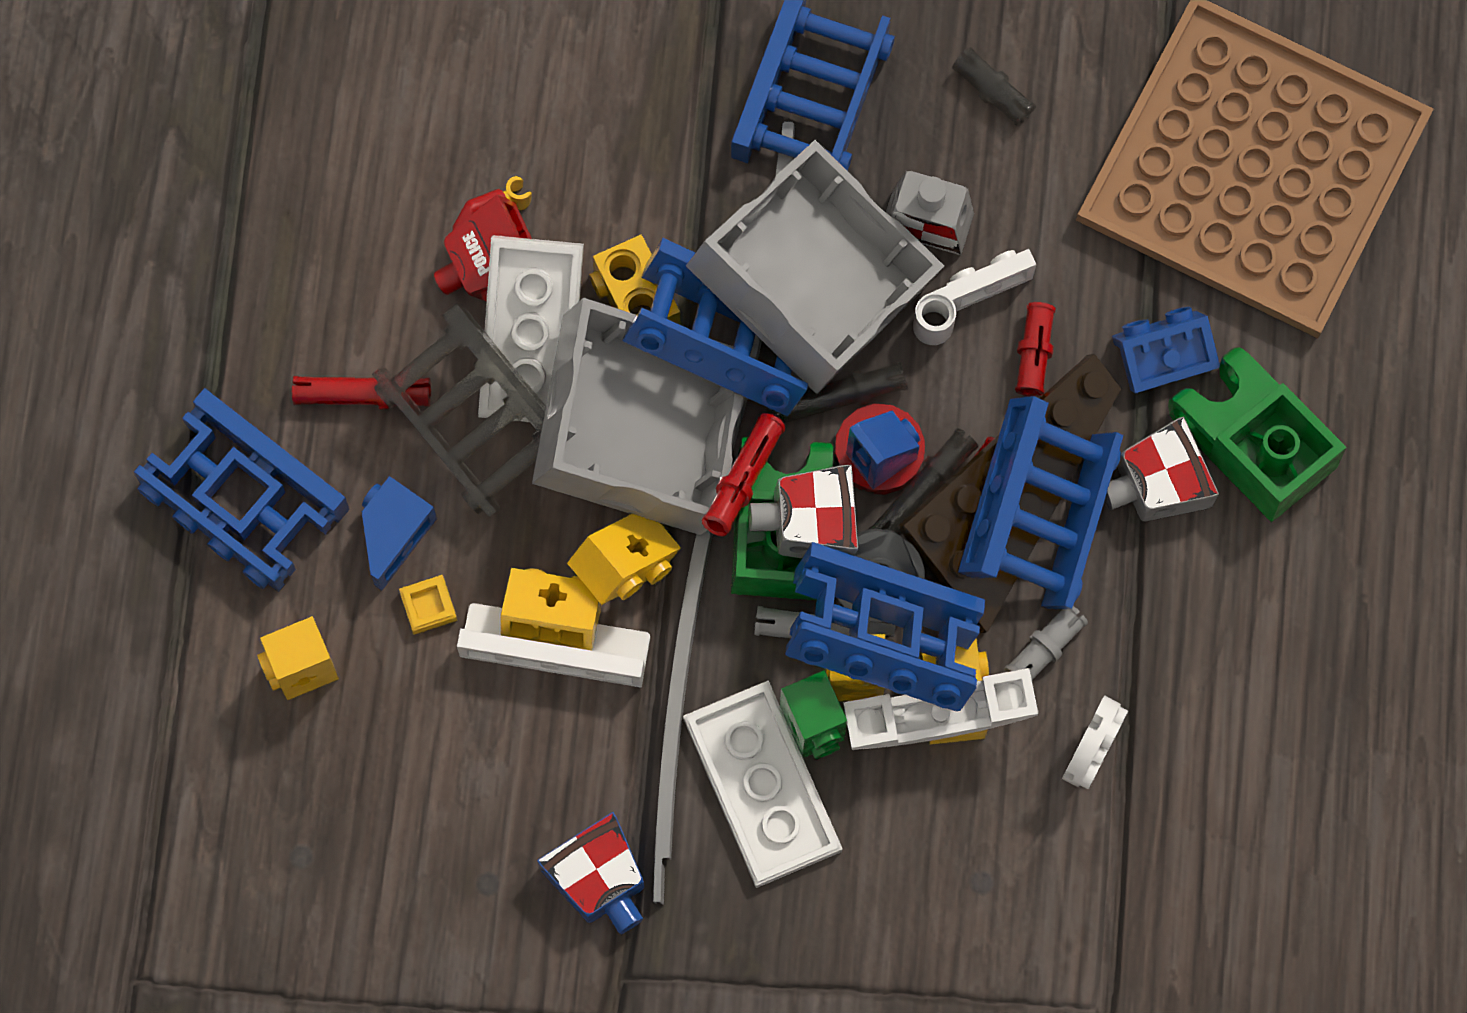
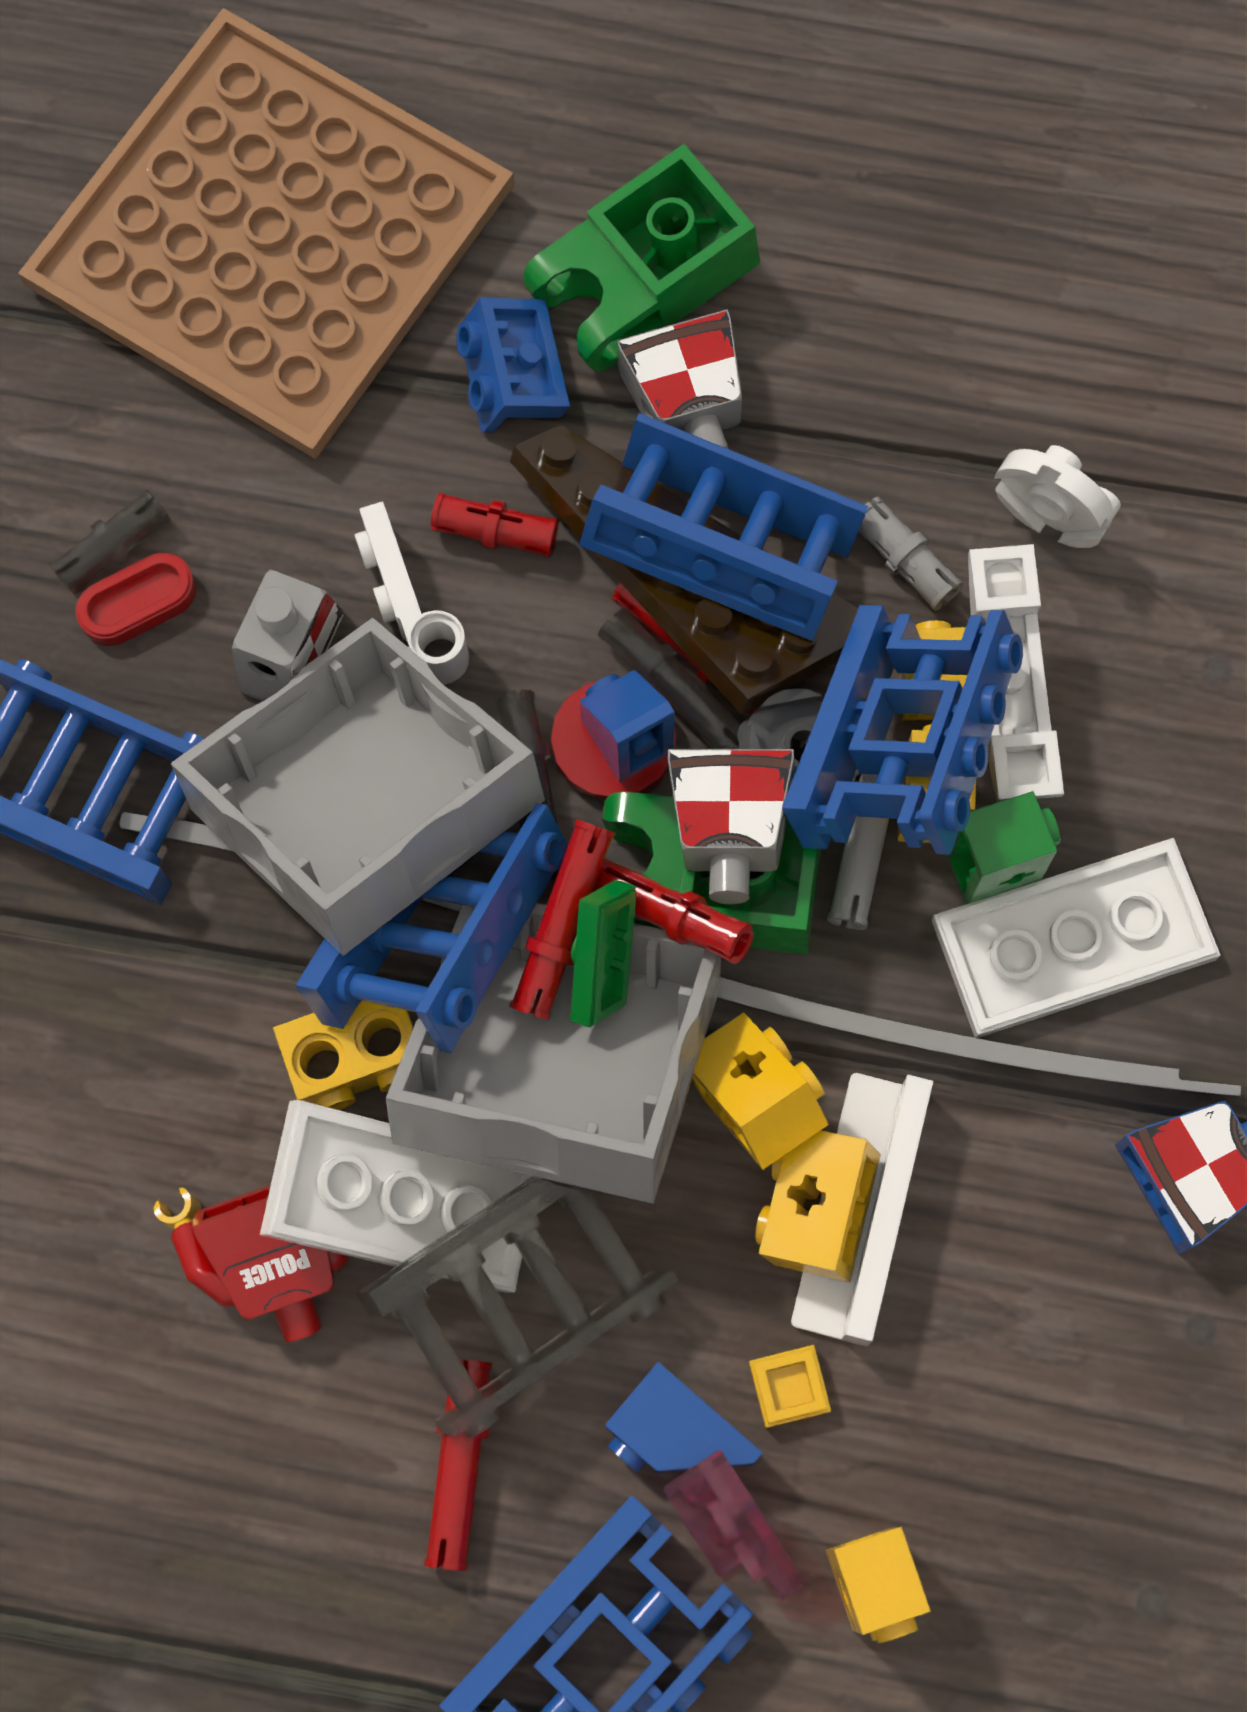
camera: 80 degrees left, 0 degrees up
(330, 565) = (730, 1524): none -> clear pink bracket
(705, 438) = (602, 953): none -> green plate
(708, 407) = (558, 928): none -> red pin
(954, 111) = (136, 599): none -> red tile

